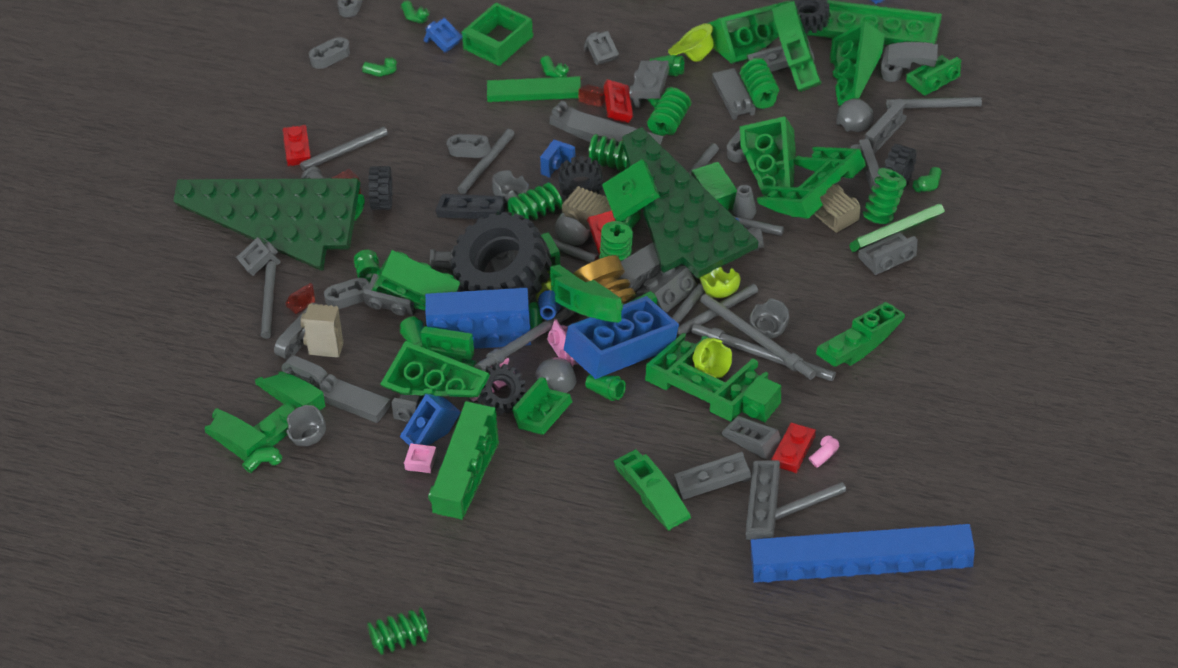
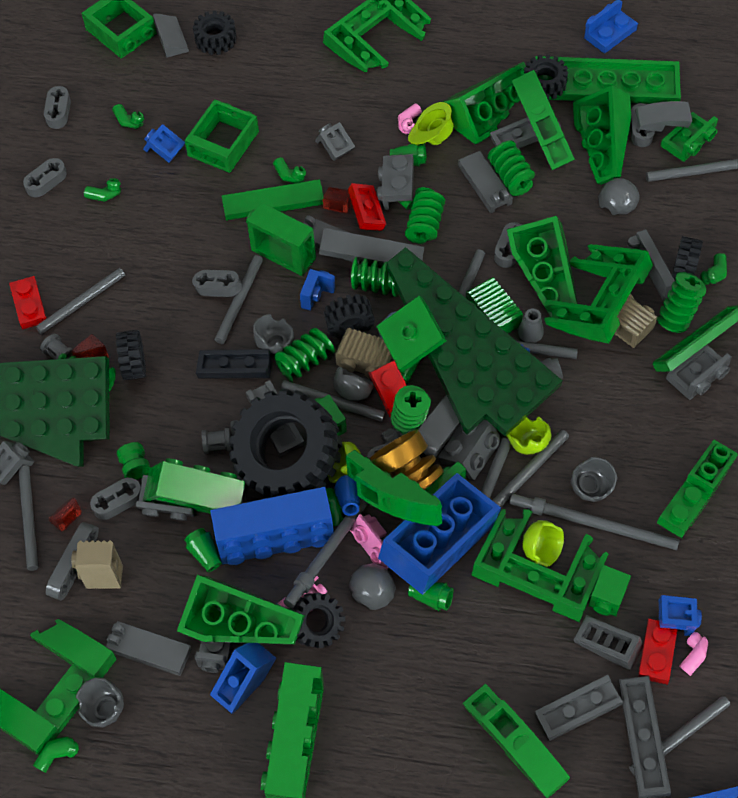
camera: 10 degrees left, 15 degrees up
(305, 370) = (86, 620): dark grey beam -> none
(420, 458) = (240, 727): bright pink plate -> none
(449, 344) = (246, 570): green plate -> none
(540, 407) = (365, 637): green bracket -> none
(546, 108) = (281, 238): none -> green window
(674, 36) = (405, 119): none -> bright pink arm
(791, 360) = (633, 534): dark grey bar -> none
(817, 417) = (679, 614): none -> blue bracket
(887, 124) = (661, 186): dark grey hinge -> none

